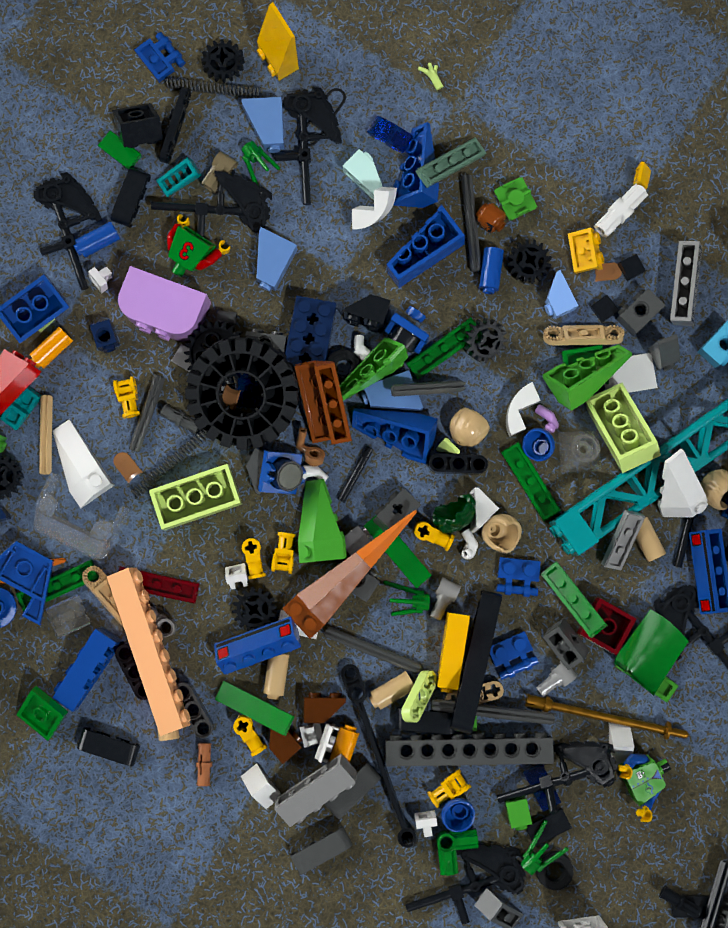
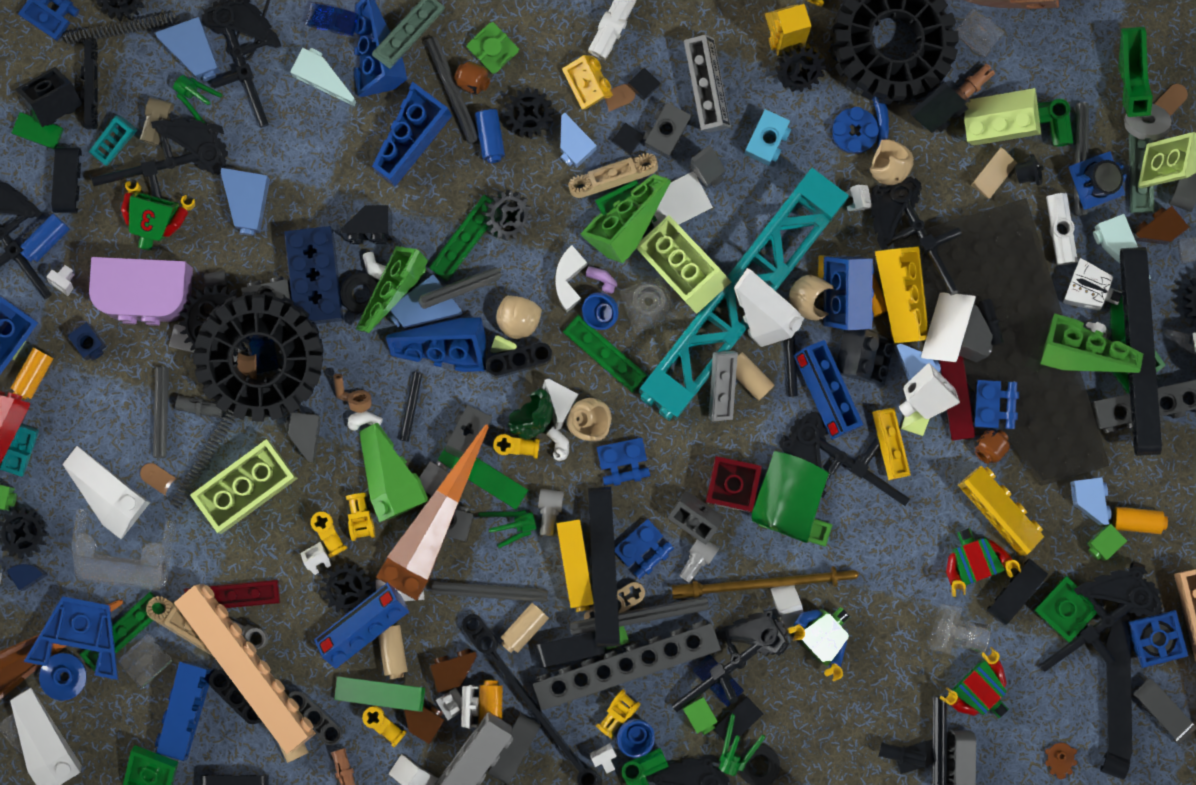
camera: 15 degrees left, 0 degrees up
(45, 462) = (56, 471): tan axle -> none
(126, 393) = (132, 399): yellow connector -> none
(282, 471) = (328, 428): piece -> none
(323, 401) = (349, 339): dark orange slope -> none
(367, 215) = (335, 118): white brick -> none
(406, 333) = (418, 236): piece -> none
(413, 708) = (551, 639): yellowish green beam -> none
(415, 314) = (422, 210): blue tile -> none
(574, 599) = (688, 467): green tile -> none

